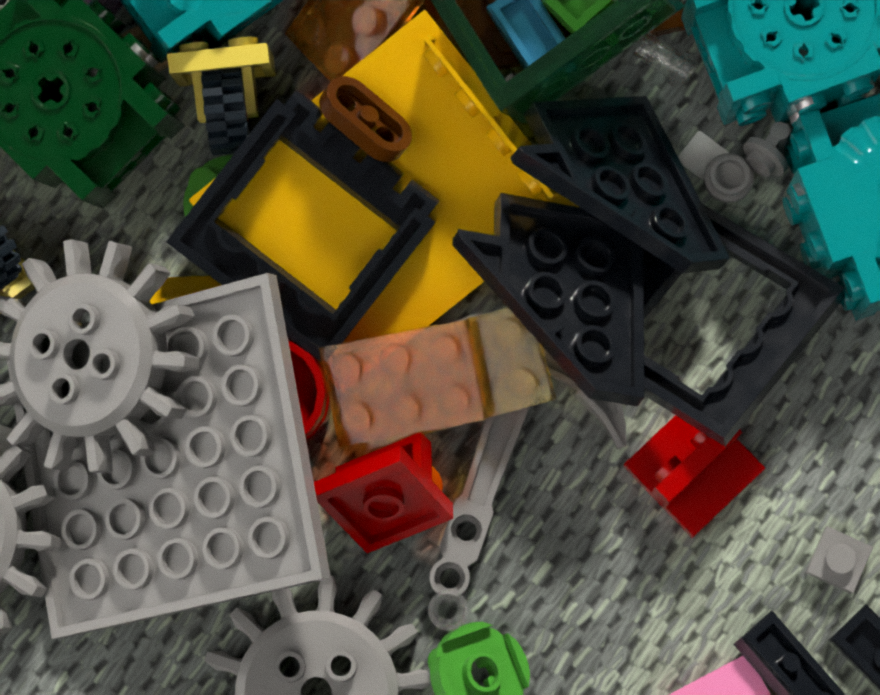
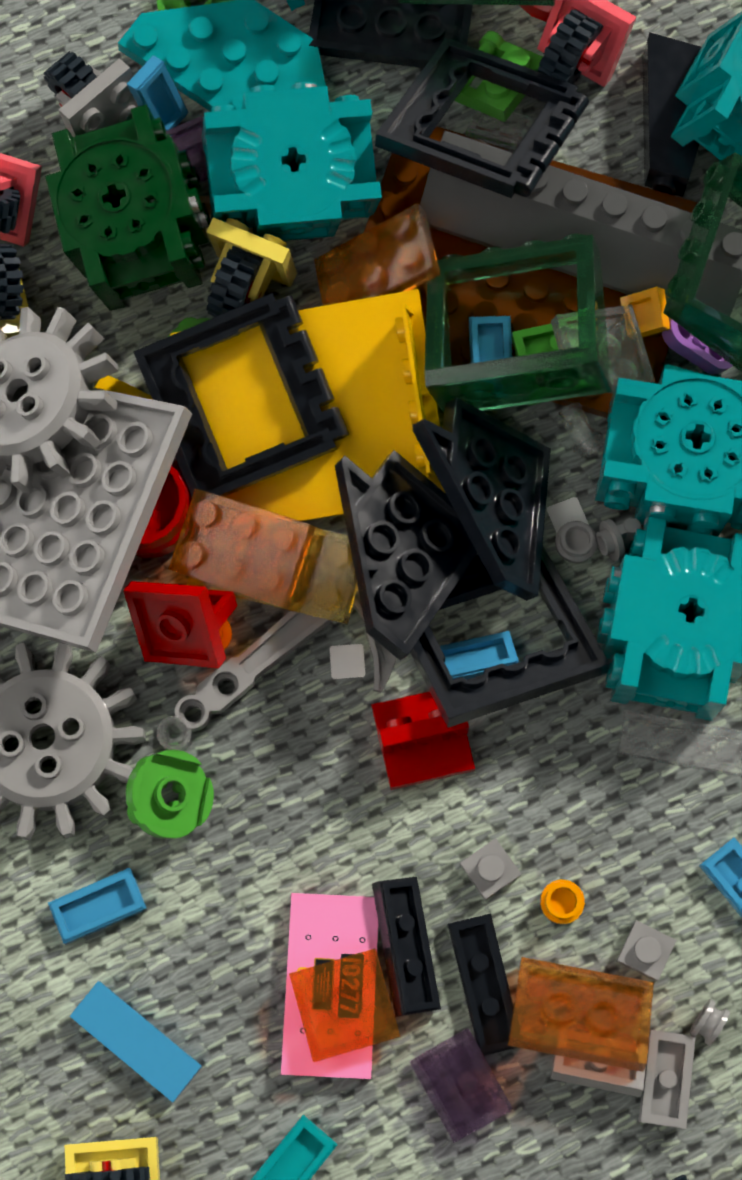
camera: 25 degrees right, 5 degrees down
(365, 119) = (329, 343): reddish brown plate -> none
(570, 433) = (347, 661): none -> white sticker
(705, 351) = (474, 655): none -> dark azure tile

